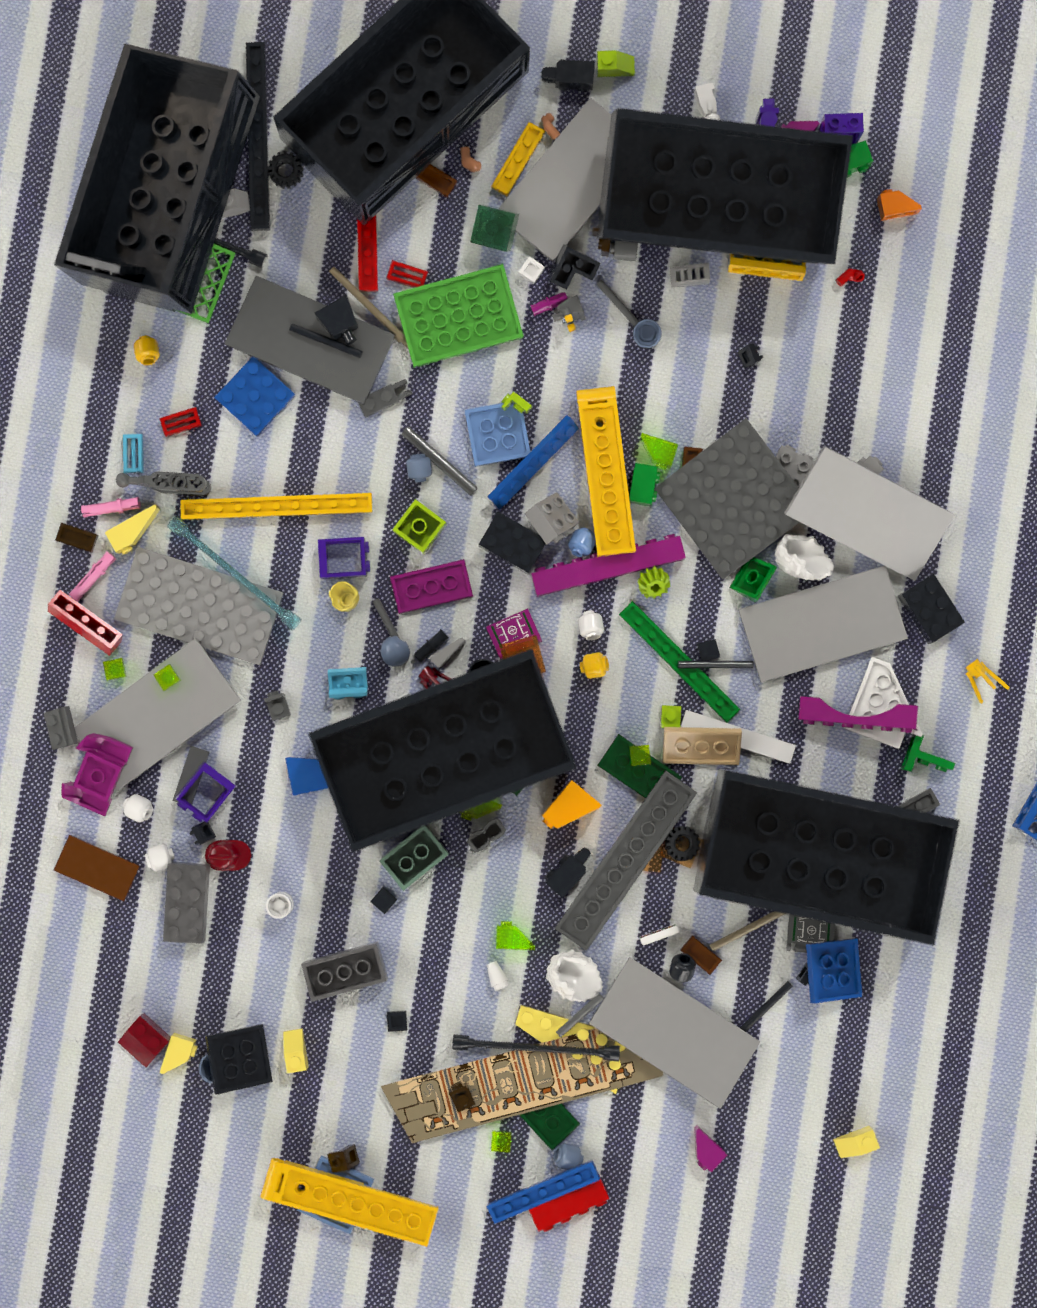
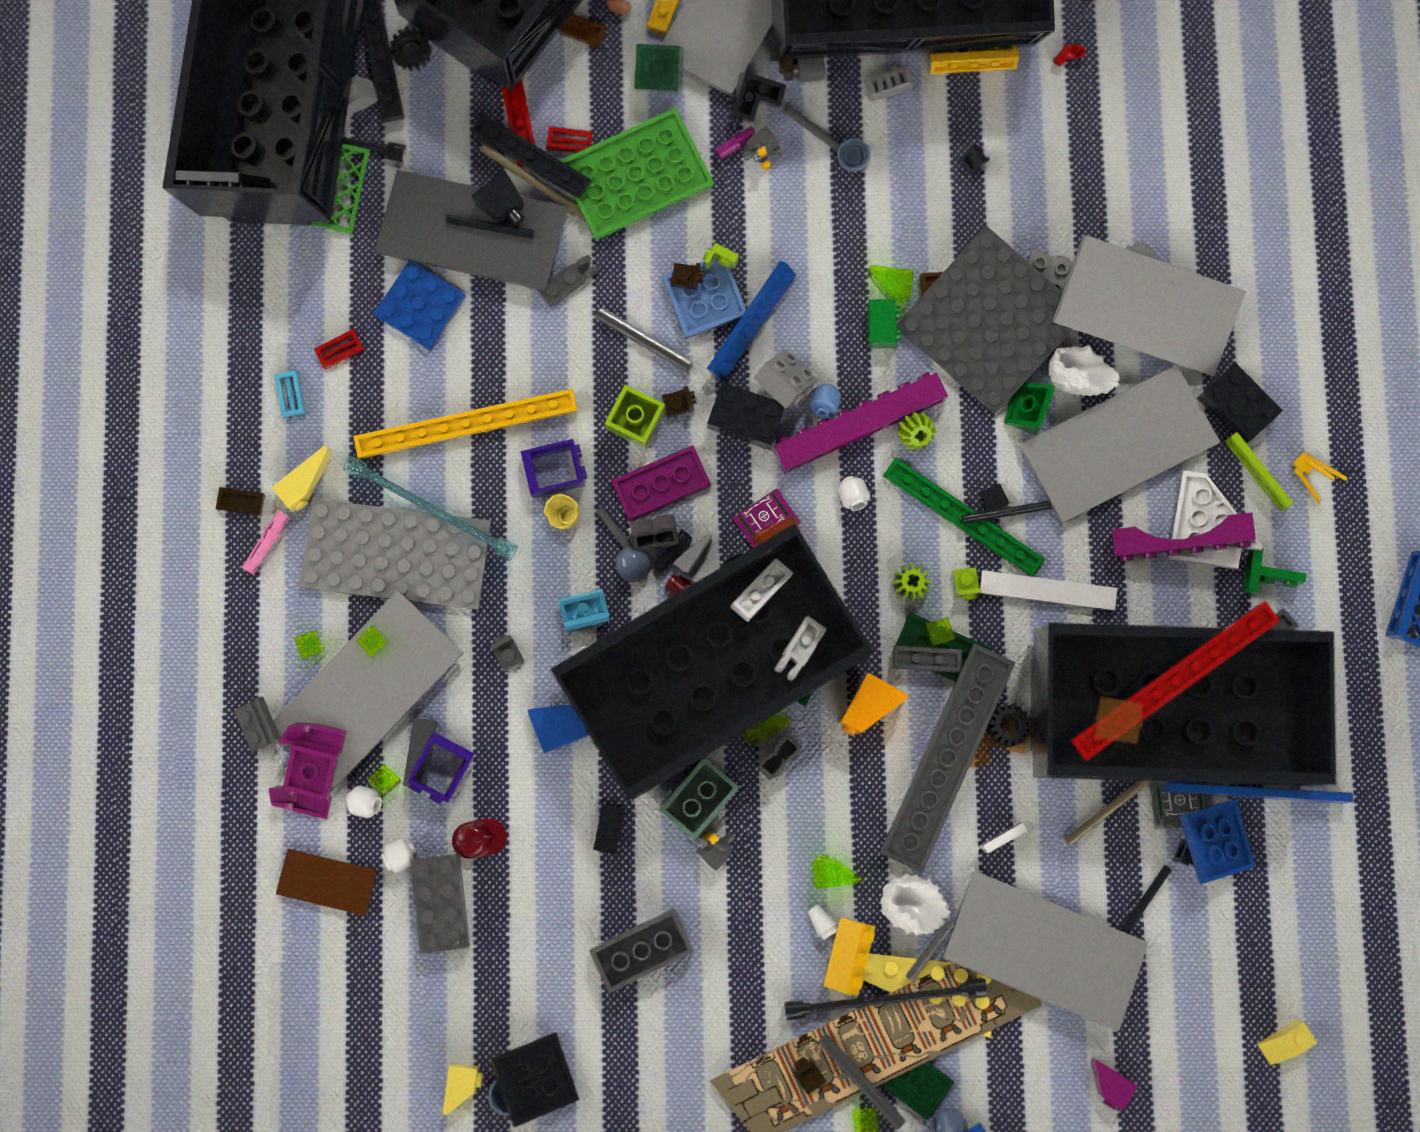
camera: 10 degrees left, 5 degrees down
(84, 622) = (265, 596): brick -> none
(111, 507) = (274, 459): bright pink pin -> none
(144, 1040) = (417, 1078): dark red slope -> none
(146, 350) = (286, 275): yellow head -> none
(153, 480) = (333, 418): dark grey piece -> none
(157, 793) = (384, 780): none -> clear neon green plate
(203, 833) = (445, 817): black tile -> none
(279, 905) = (551, 885): white wheel -> none
(295, 1051) = (599, 1057): light yellow slope -> none
(335, 867) = (609, 829): none -> black tile
(371, 284) = (531, 156): none -> black tile
(383, 900) = (672, 857): black tile -> none
(397, 1020) = (714, 998): black tile -> none
(415, 628) = (654, 533): none -> dark grey brick
(419, 467) = (622, 350): sand blue head -> none
(421, 900) = (716, 850): none -> dark grey piece
(459, 520) = (679, 402): none -> dark brown bracket
(485, 414) = (687, 276): none -> dark brown bracket
(496, 695) = (761, 590): none -> white plate
(504, 1110) = (862, 1081): none -> dark grey axle
(513, 1007) = (849, 956): none -> yellow brick
(520, 748) = (801, 646): none -> white hinge
(531, 270) = (709, 109): white plate -> none
(568, 873) = (883, 785): black hinge -> none
(594, 665) = (866, 538): yellow head -> none
(605, 471) = (837, 315): yellow hinge -> none
(625, 775) = (927, 659): none -> dark grey tile
(630, 712) = (919, 586): none -> lime gear
(682, 967) = (1039, 871): black head -> none
(701, 745) = (1009, 607): tan tile -> none
(701, 954) = (1056, 853): reddish brown tile -> none
(765, 861) = (1118, 720): none -> clear orange piece
(819, 836) = (1188, 671): none -> red plate
(881, 938) = (1257, 792): none -> blue tile
(935, 669) = (1259, 472): none -> lime tile

